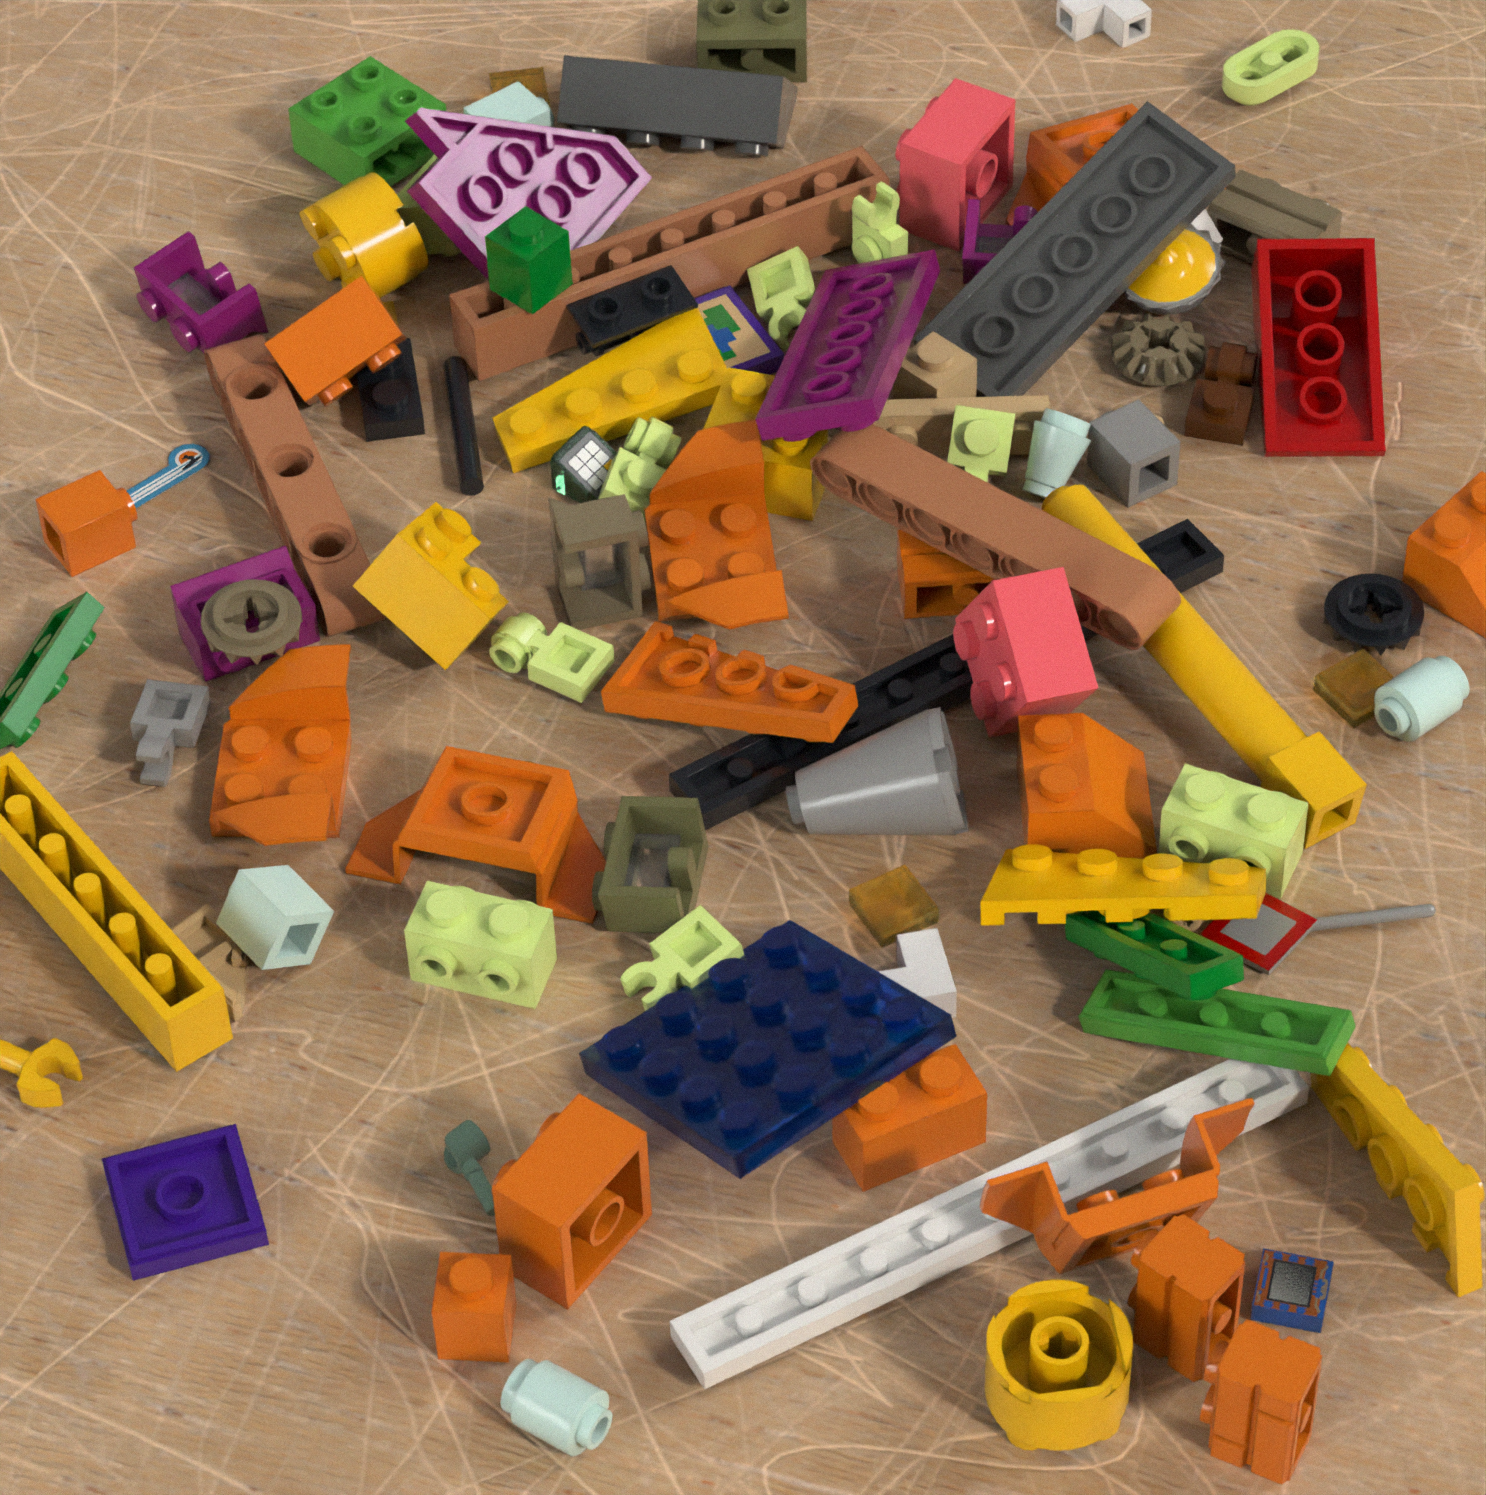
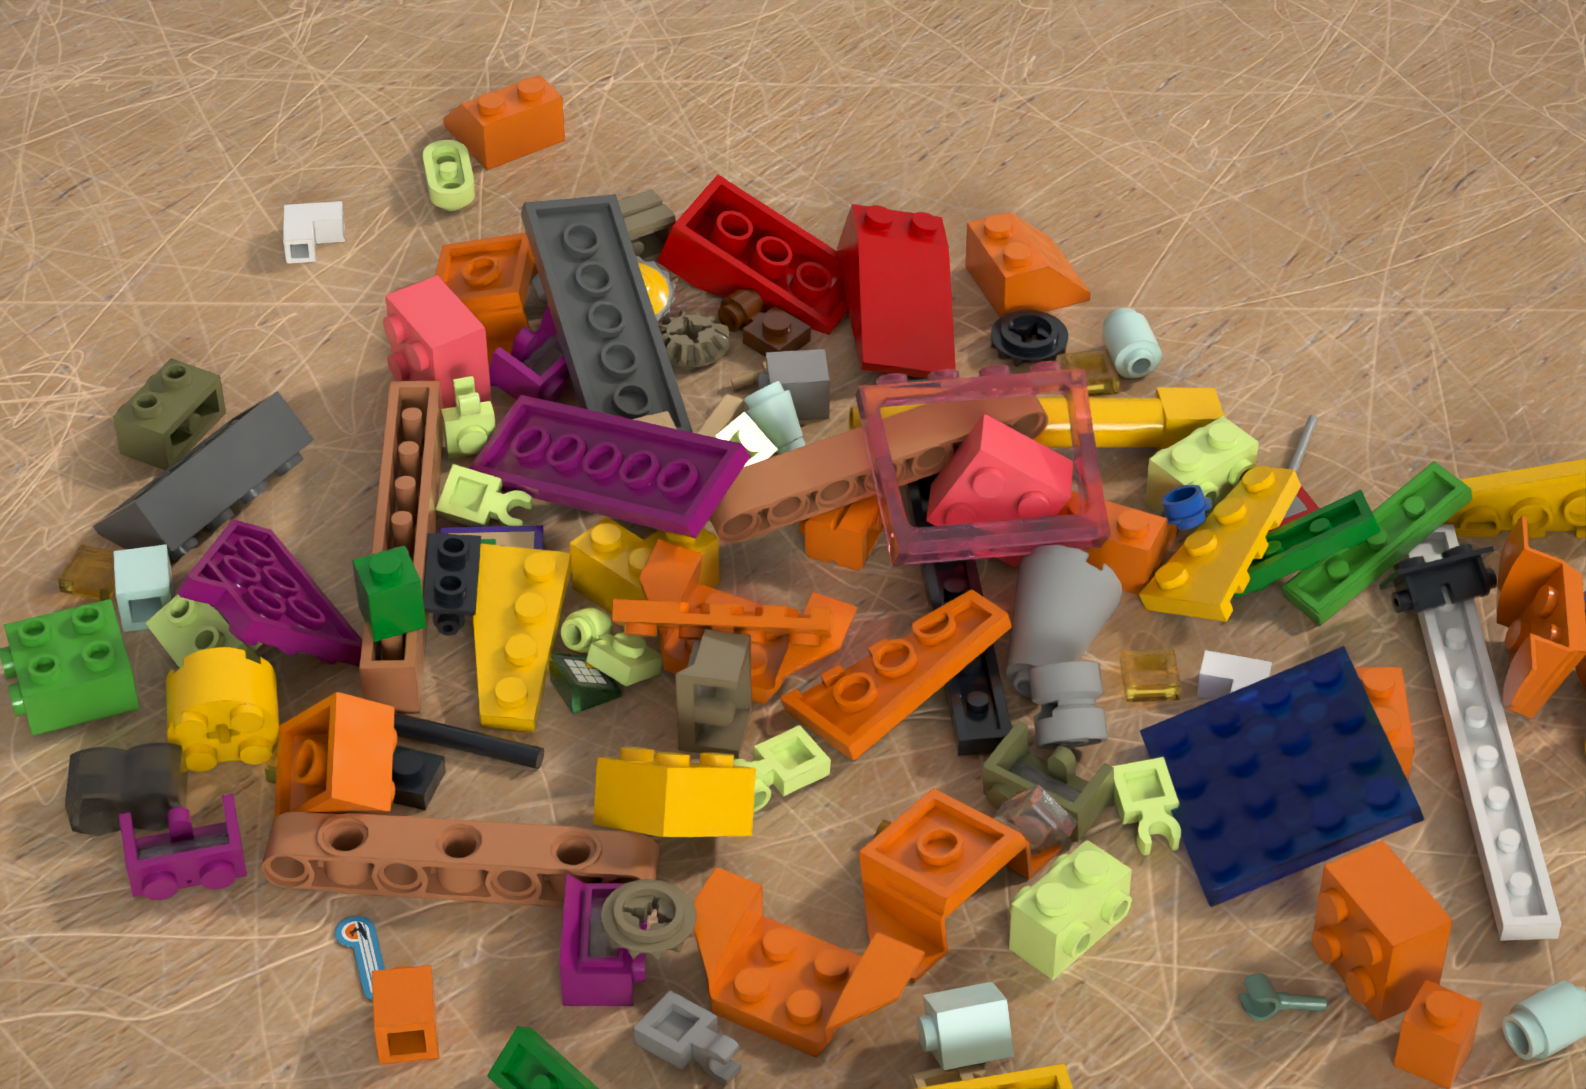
camera: 65 degrees left, 5 degrees down
(251, 232) = (118, 781): none -> clear smoke brick
(572, 868) = (1037, 818): none -> clear plate
(668, 518) = (645, 616): none -> orange wing
(764, 826) = (1068, 704): none -> light grey wheel
(872, 594) = (994, 538): none -> clear pink windscreen
(1134, 824) = (1185, 506): none -> blue plate
(1157, 1075) = (1420, 583): none -> black hinge
(1339, 471) = (898, 290): none -> red slope
(1390, 72) = (509, 122): none -> orange slope

